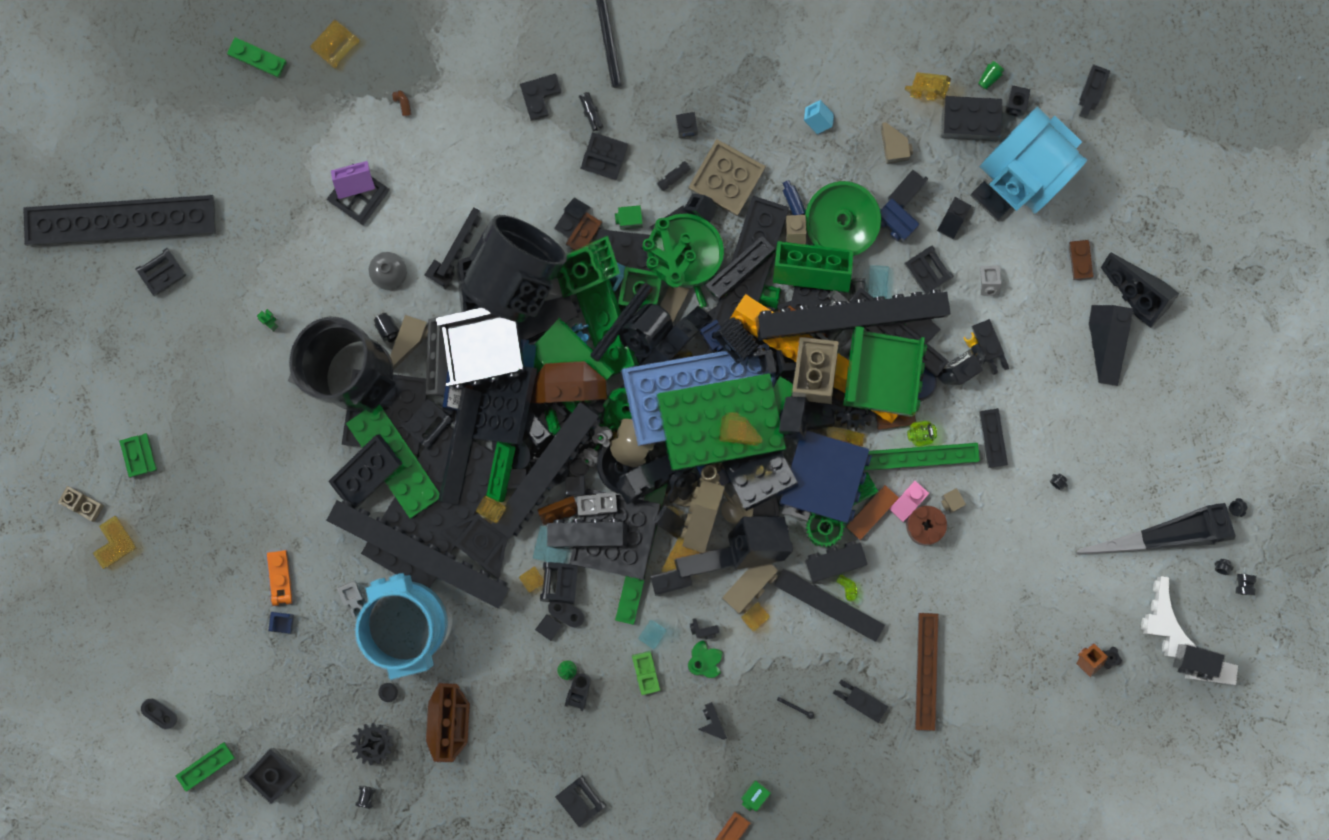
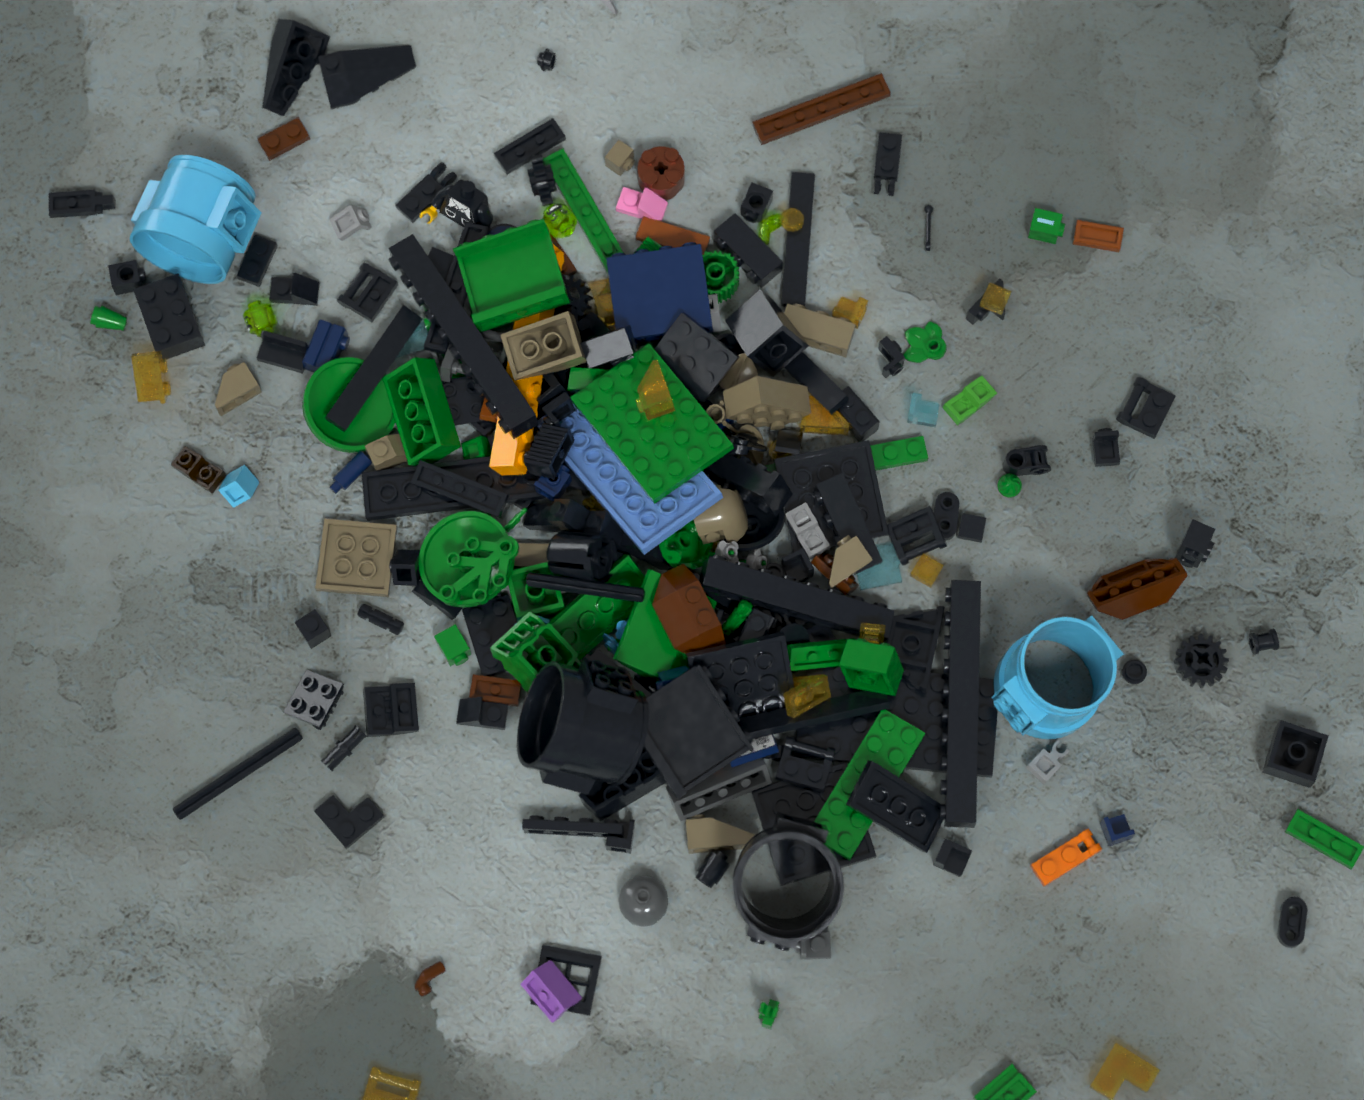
camera: 115 degrees left, 10 degrees down
(316, 497) = (952, 857): none -> black panel
(455, 781) = (1196, 544): none -> black brick
(471, 497) = (871, 666): none -> green brick
(475, 448) = (807, 693): none -> clear yellow slope
(556, 520) = (848, 559): none -> dark tan slope
(561, 754) = (1106, 447): none -> black bracket
(635, 106) = (314, 699): none -> hinge
(710, 726) = (995, 298): none -> clear yellow plate
(844, 606) = (792, 219): none -> clear yellow plate
(845, 94) = (198, 469): none -> dark brown slope
(862, 246) = (373, 368): none -> black tile
(879, 586) = (756, 194): none -> black brick
(941, 183) = (259, 317): none -> clear neon green head
(957, 432) = (542, 180): none -> black gear

